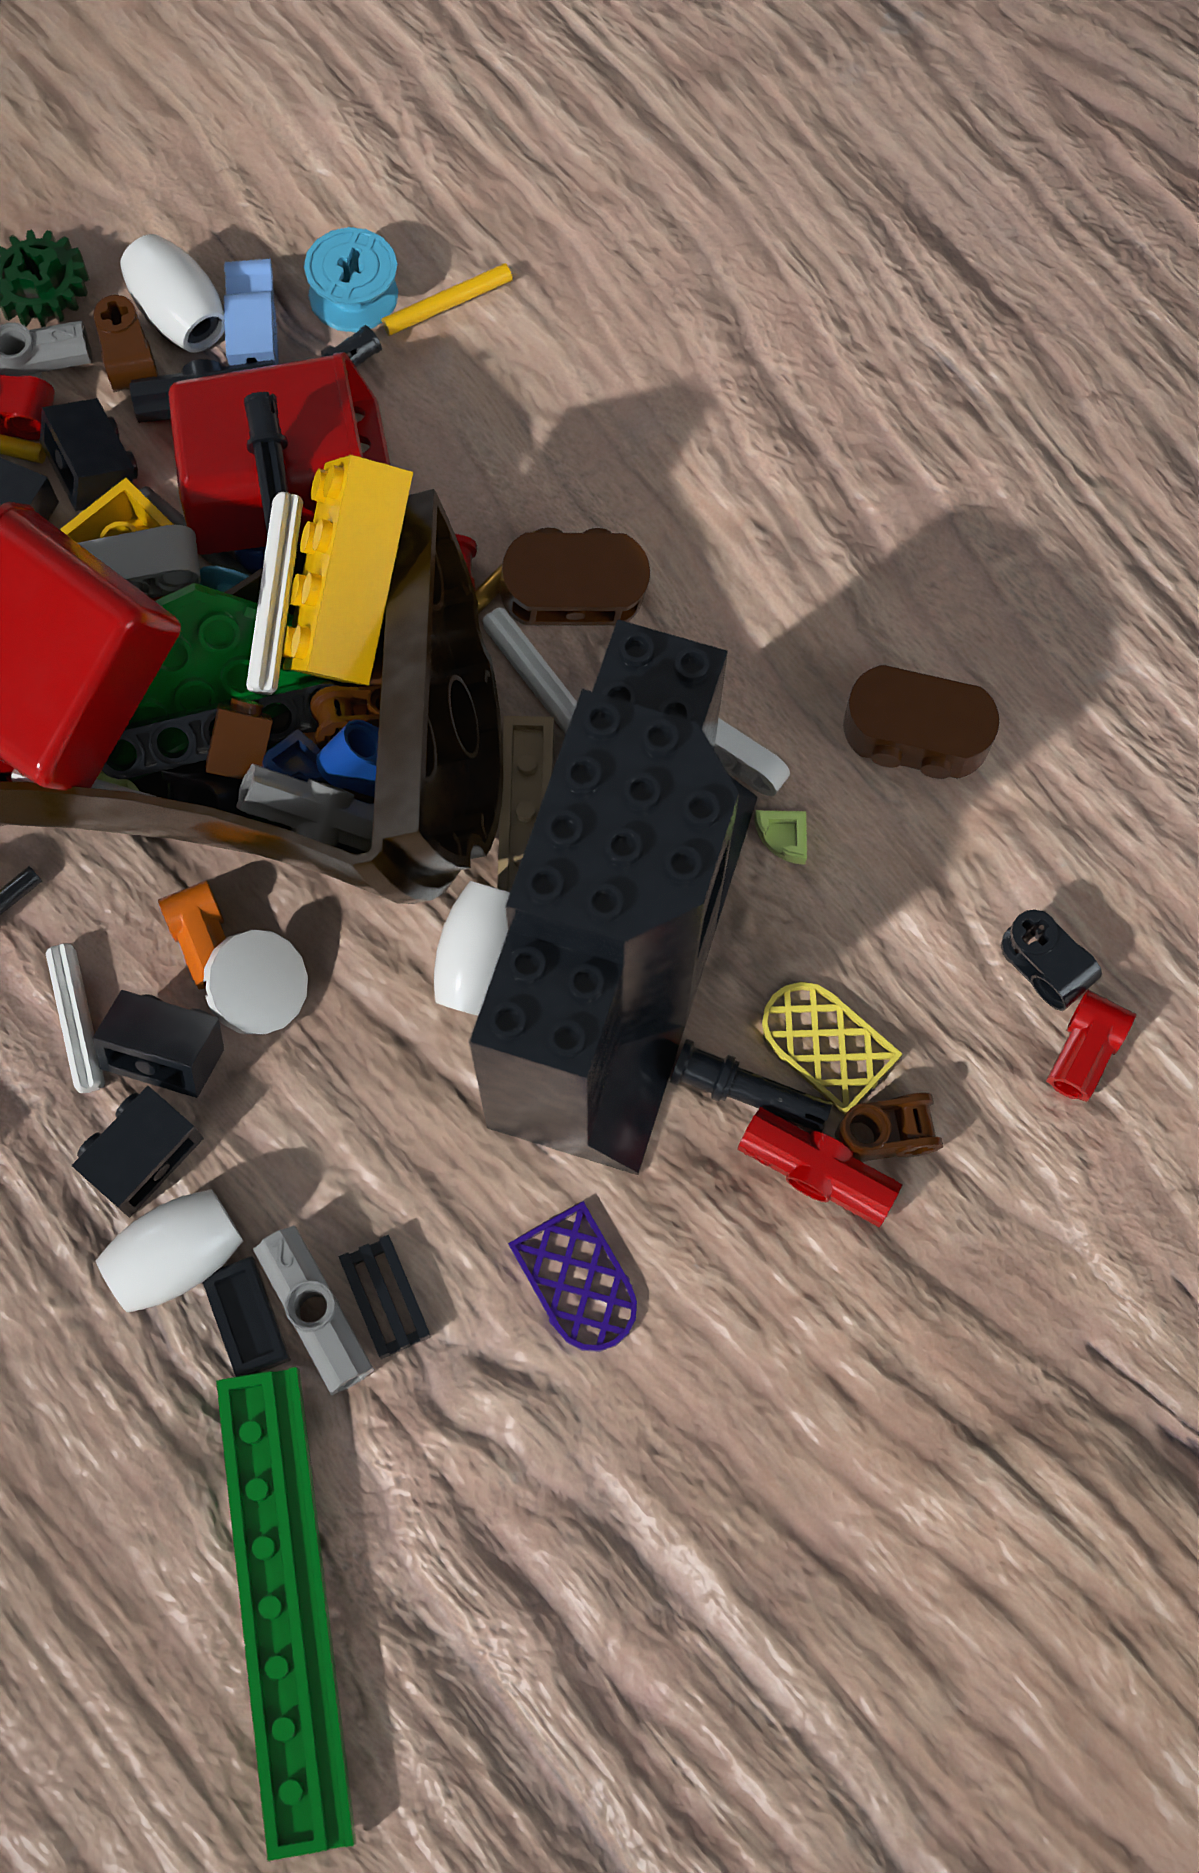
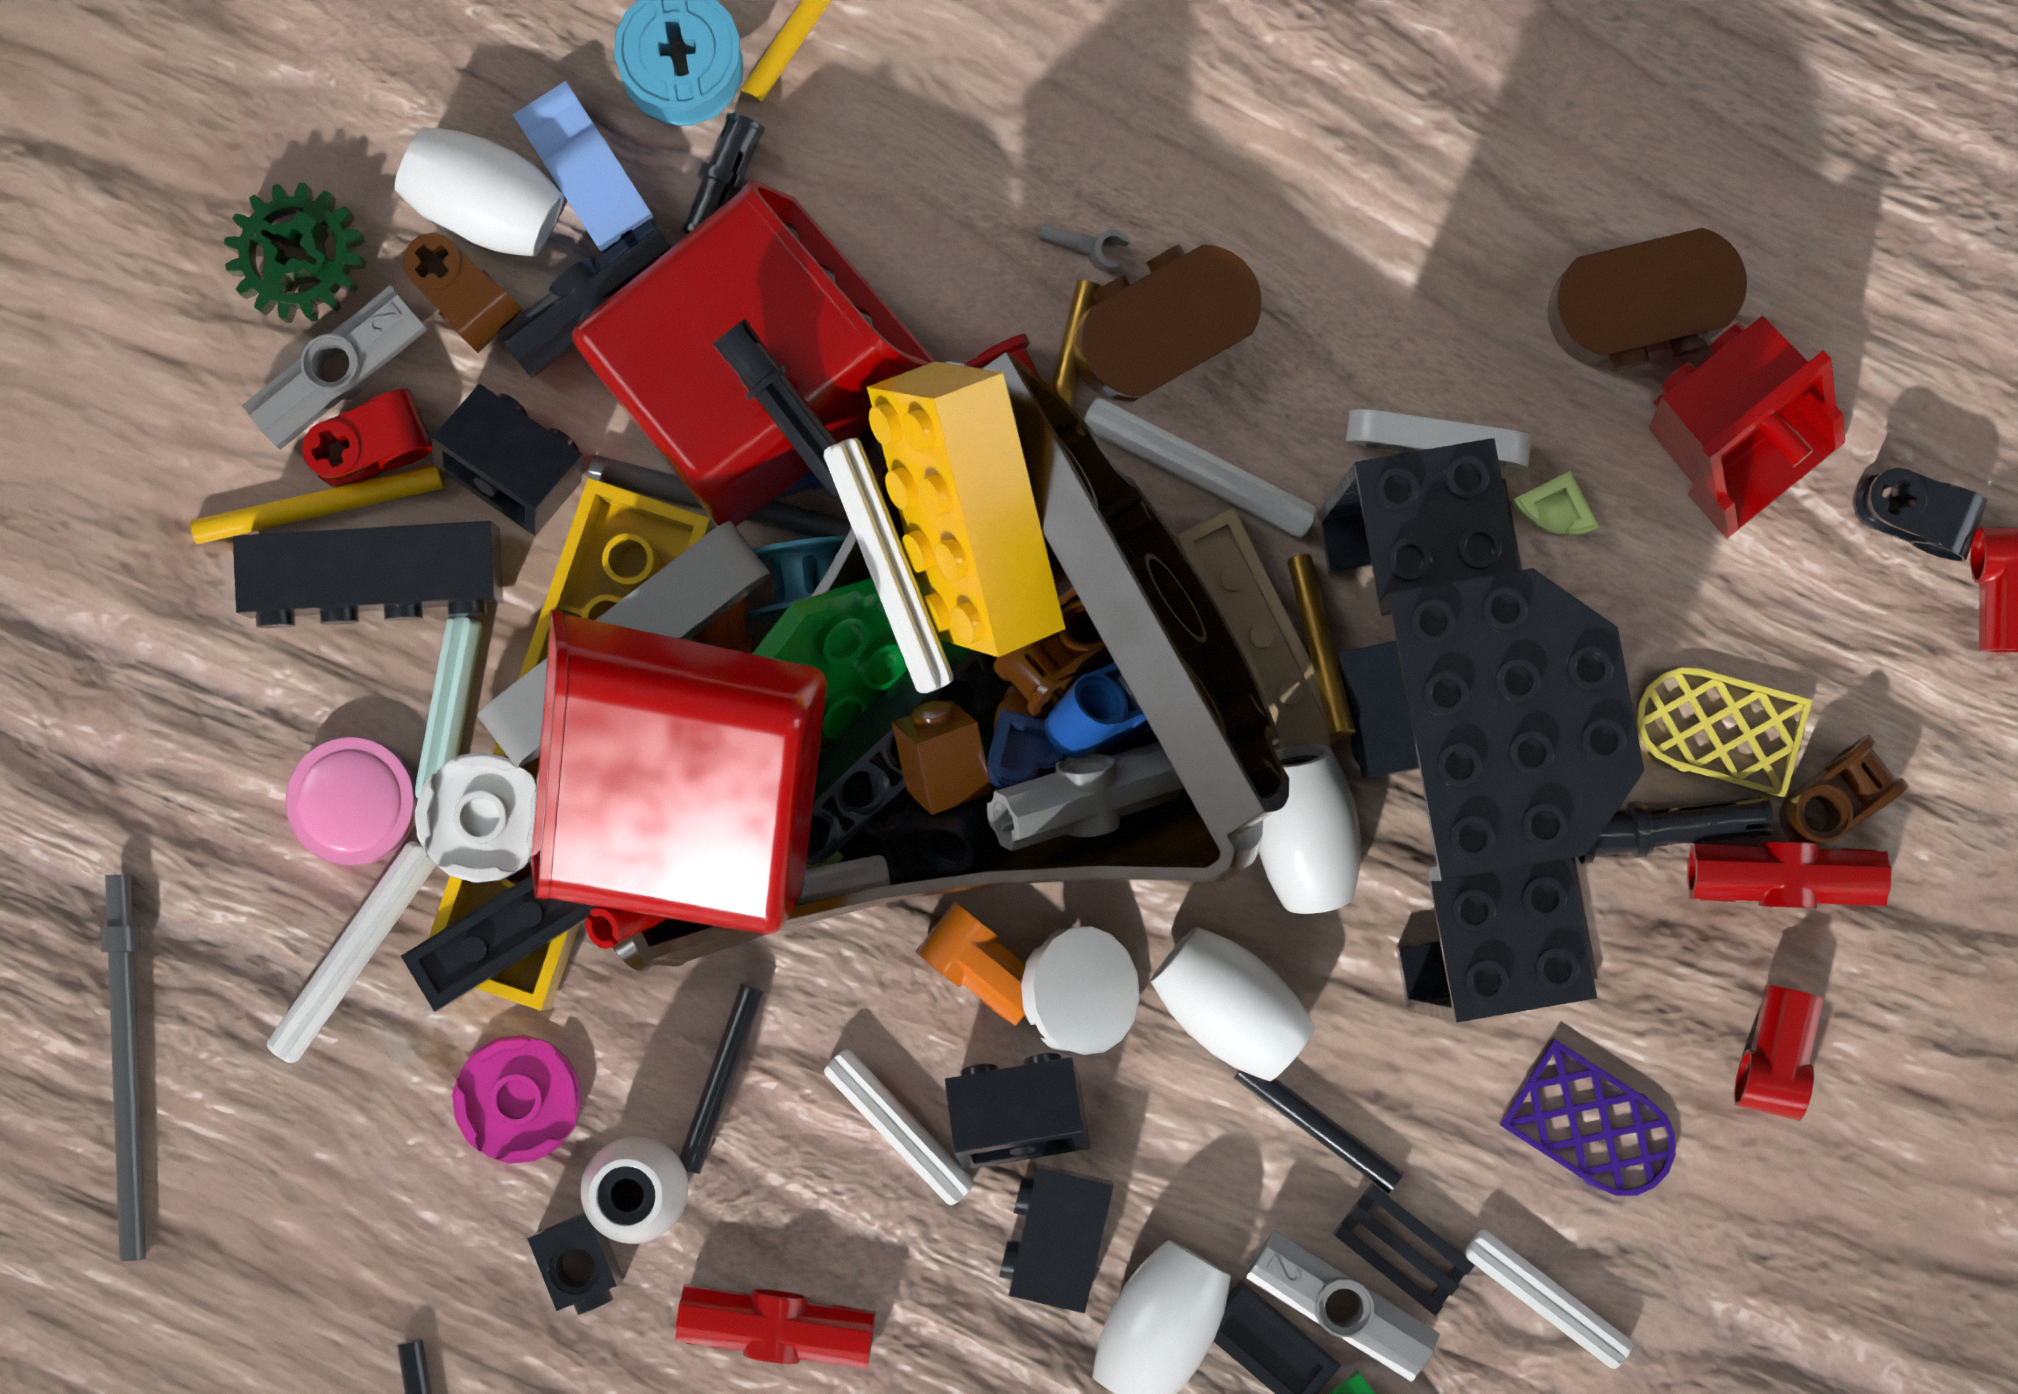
camera: 25 degrees left, 15 degrees up
(357, 1045) = (1232, 1004): none -> white piece
(374, 1174) = (1323, 1129): none -> black bar
(472, 1392) = (1548, 1299): none -> white axle
(553, 515) = (1086, 244): none -> light grey hand
(738, 1305) = (1777, 1069): none -> red piece
(950, 829) = (1748, 422): none -> red piece

